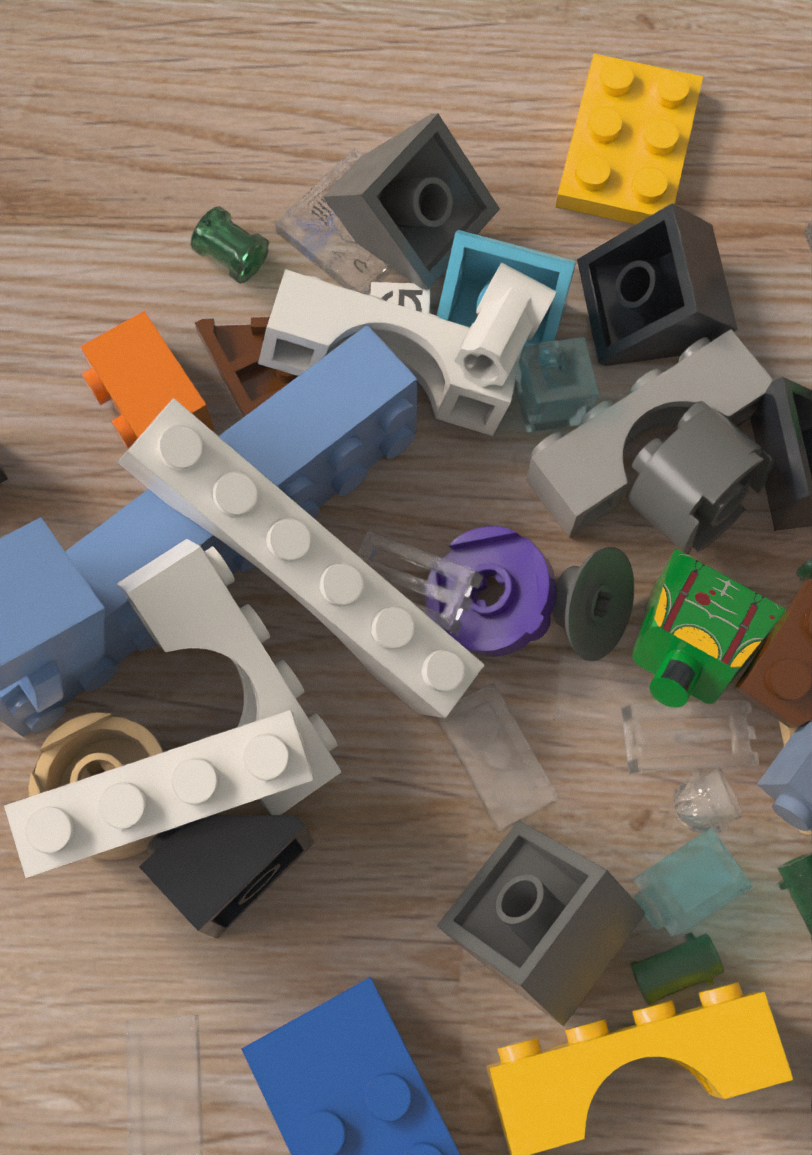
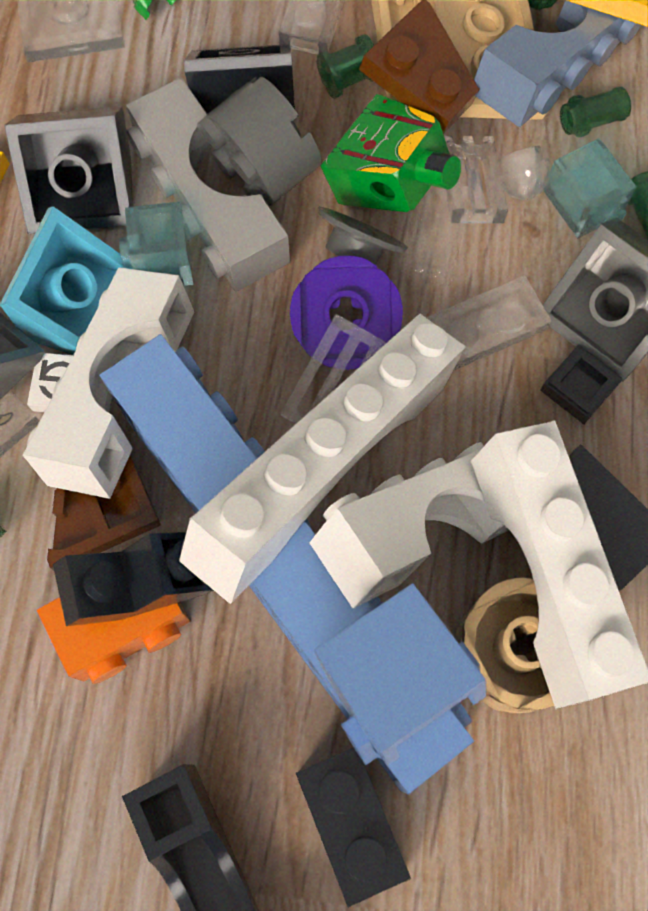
camera: 85 degrees left, 0 degrees up
(161, 367) = (126, 582): none -> black slope
(430, 873) = (581, 384): none -> black tile
(505, 320) = (94, 264): white piece -> none

